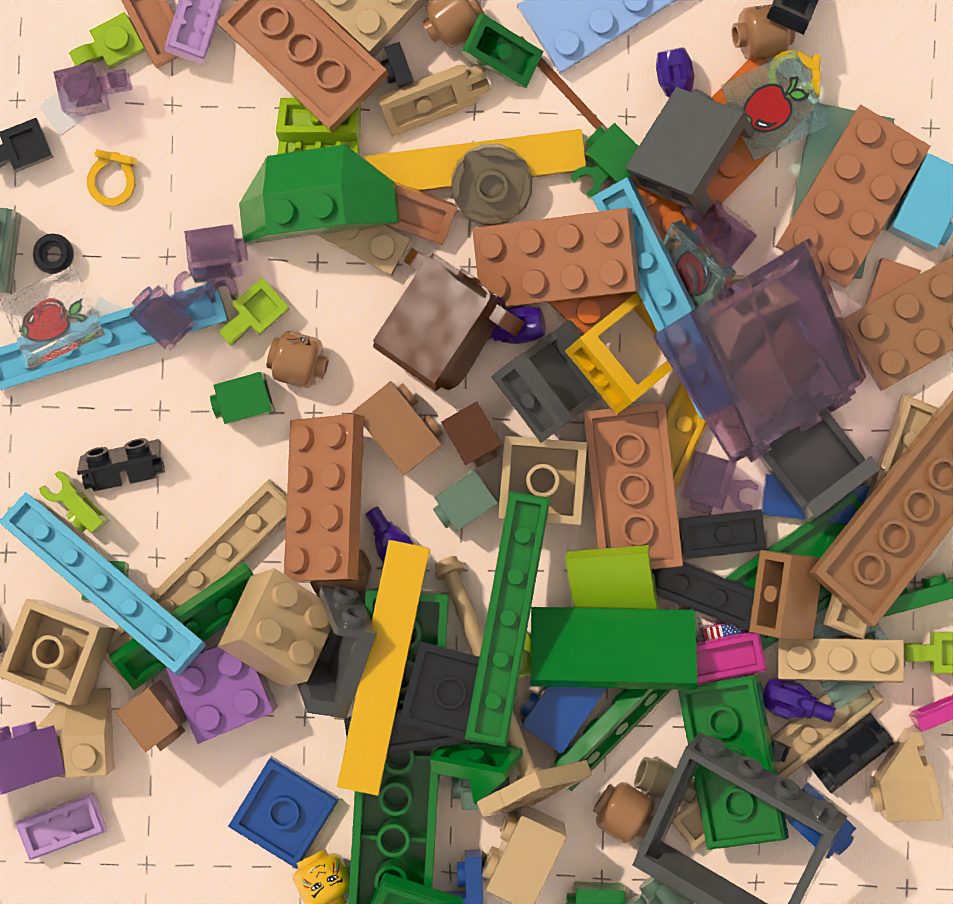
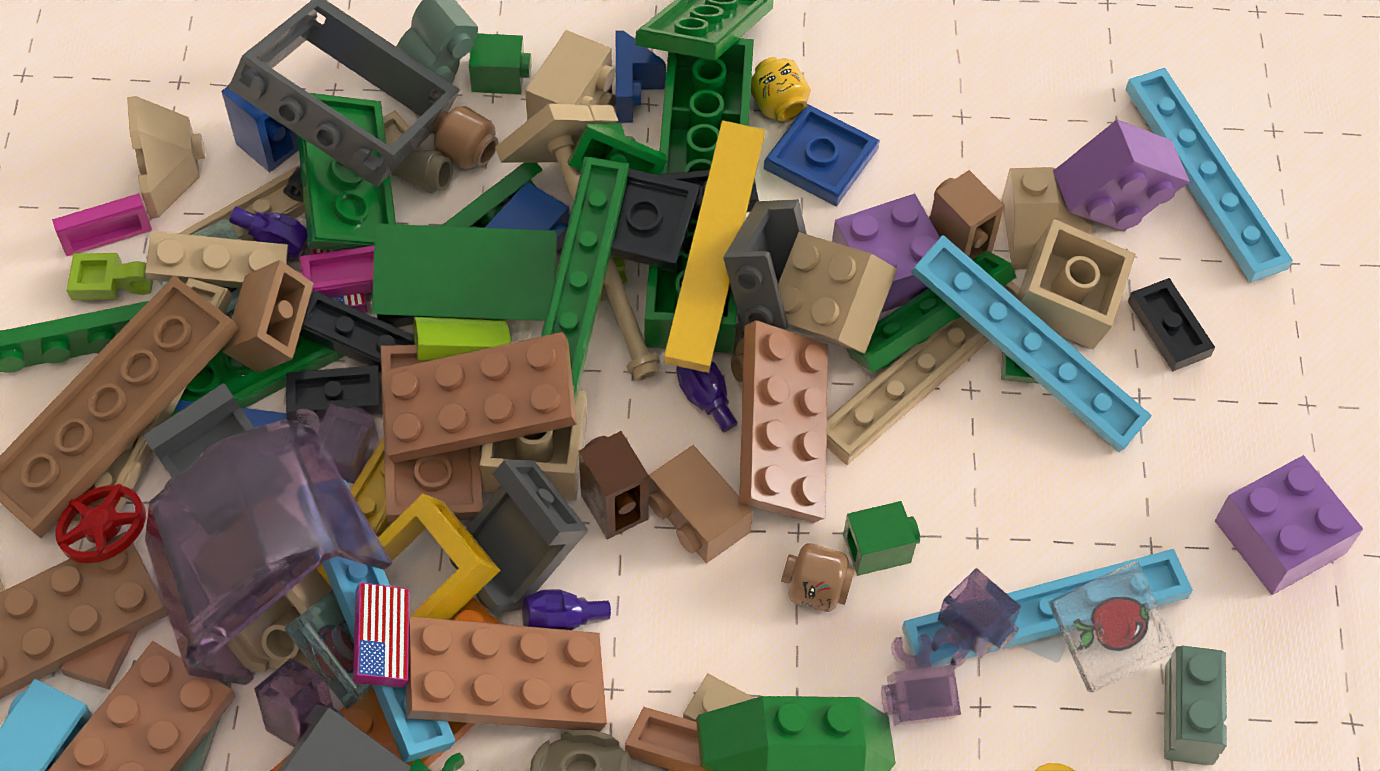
camera: 175 degrees left, 30 degrees down
(41, 249) = (1125, 695): black plate -> none
(61, 826) = (1049, 141): lavender plate -> none
(83, 511) = (1059, 431): lime plate -> none
(102, 466) = (1026, 478): black hinge -> none
(257, 309) = (869, 636): lime plate -> none
(441, 322) = (644, 605): piece -> none
(463, 501) = (628, 414): sand green brick -> none
(590, 501) = (479, 397): none -> nougat plate
(657, 273) = (381, 635): none -> tile
(850, 753) = (204, 195): black hinge -> none
(906, 391) = (100, 523): none -> red wheel

